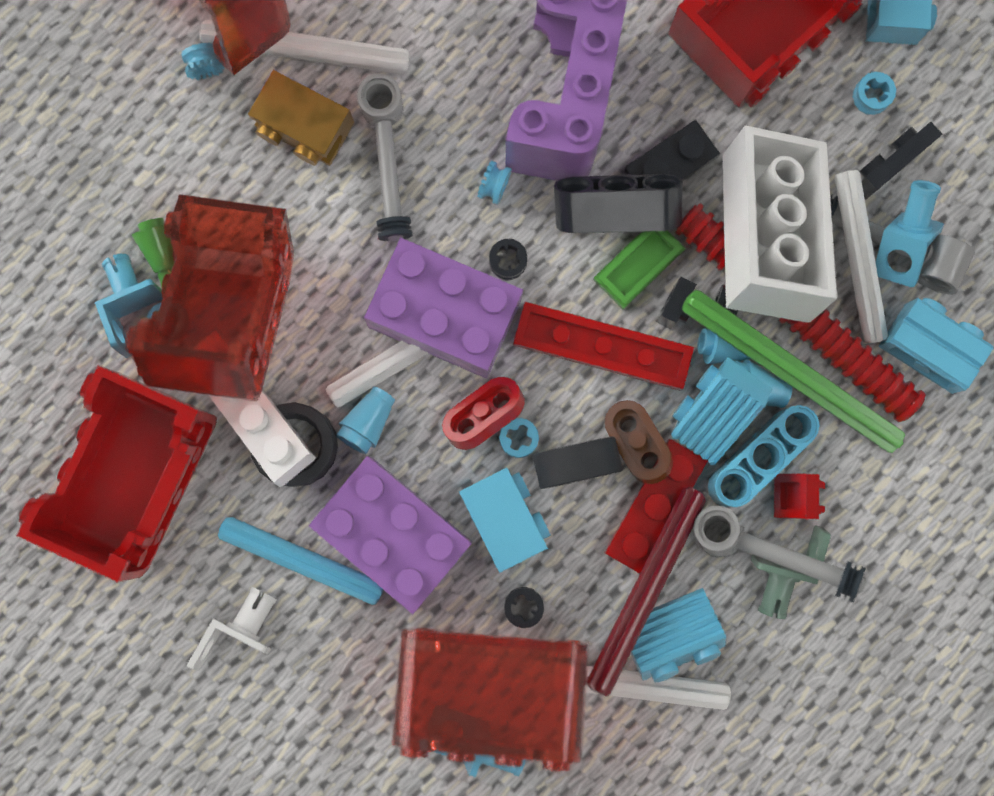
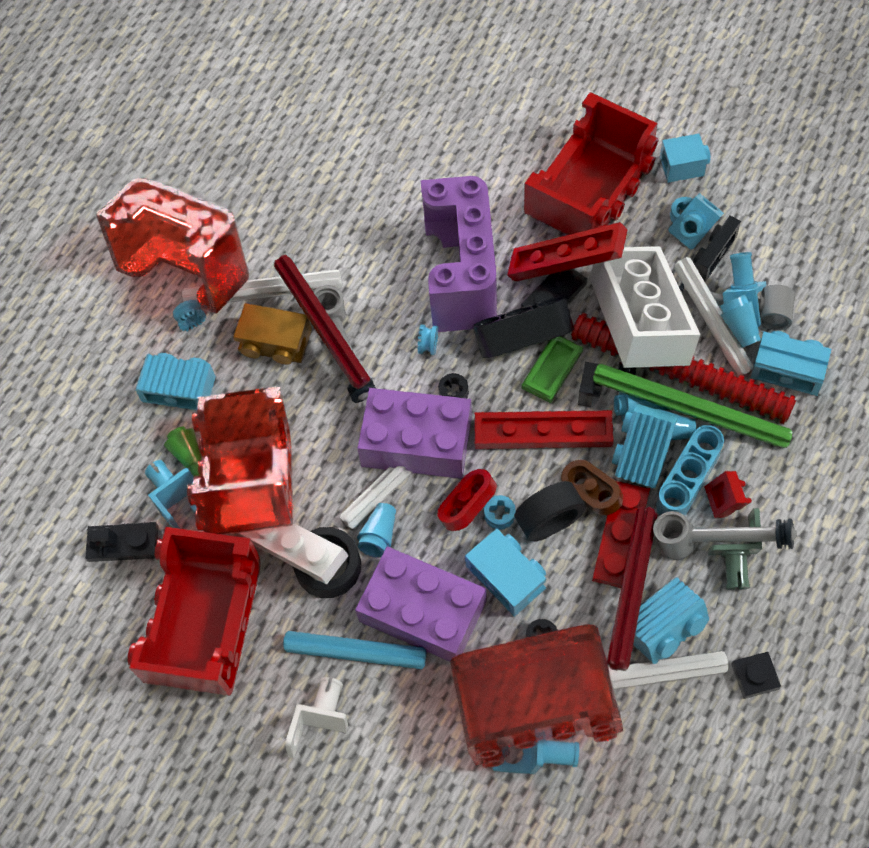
camera: 10 degrees left, 20 degrees down
(56, 345) = (121, 542): none -> black hinge
(164, 151) = (174, 381): none -> medium azure brick
(363, 125) = (321, 322): none -> dark red axle
(707, 120) = (568, 252): none -> red plate
(757, 722) = (756, 675): none -> black plate
(885, 111) = (695, 221): none -> medium azure bracket
(895, 275) = (741, 320): none -> medium azure cone

